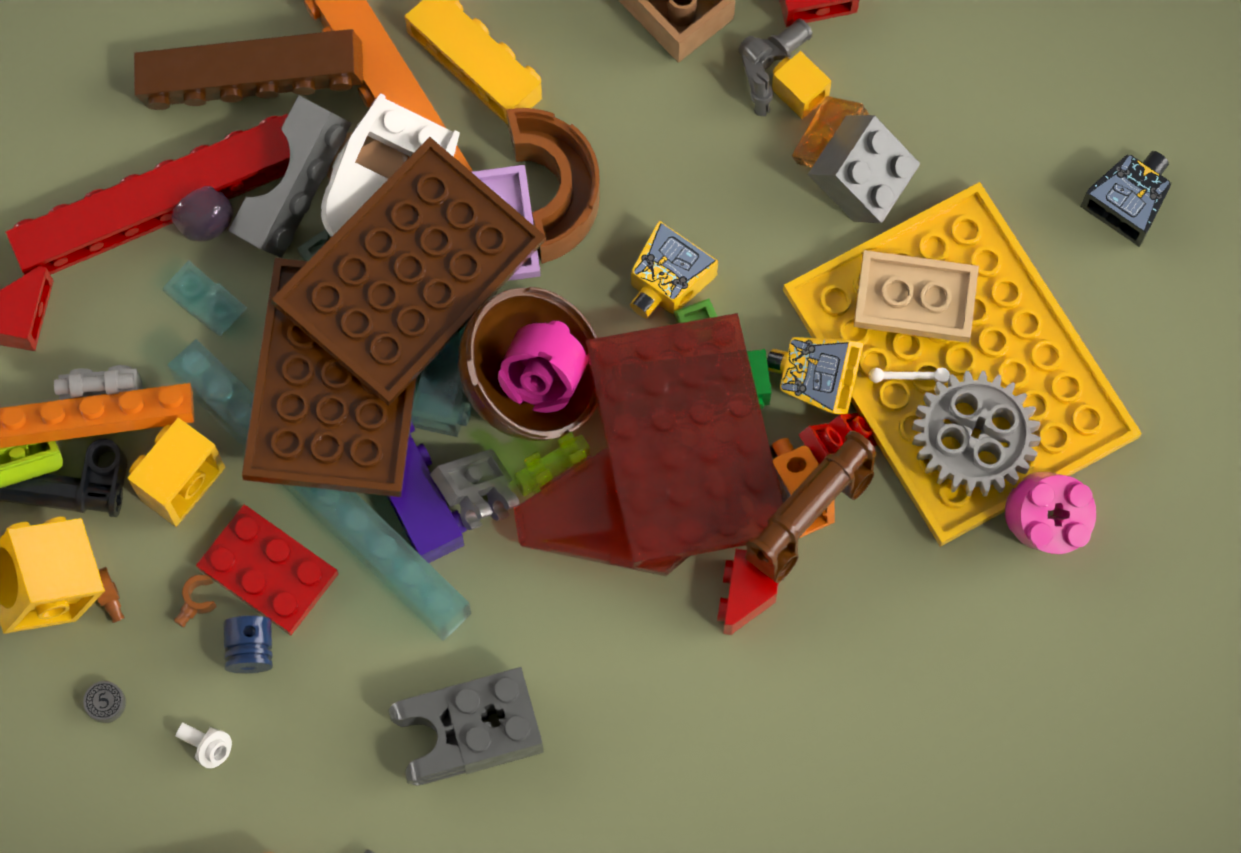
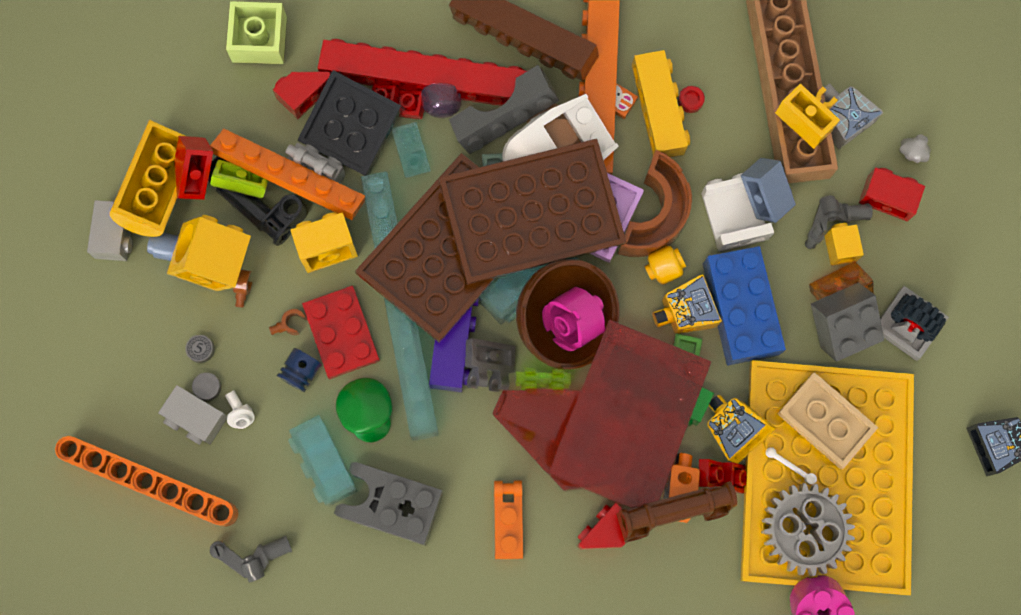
camera: 30 degrees right, 5 degrees up
(108, 311) = (350, 123): none -> black plate
(144, 741) = (206, 386): none -> flat silver tile
(146, 253) = (408, 99): none -> red slope
(152, 784) = (193, 415): none -> light grey brick
(351, 733) = (322, 461): none -> clear light blue brick
(361, 639) = (365, 409): none -> green piece
(429, 78) = (624, 101): none -> tile
(507, 26) = (691, 99): none -> red tile
(607, 239) = (665, 265): none -> yellow head
(623, 657) = (508, 521): none -> orange plate
(648, 127) = (732, 215): none -> white panel
(670, 74) = (768, 190): none -> sand blue brick
(734, 225) = (745, 305): none -> blue brick
(939, 124) = (911, 323): none -> plate

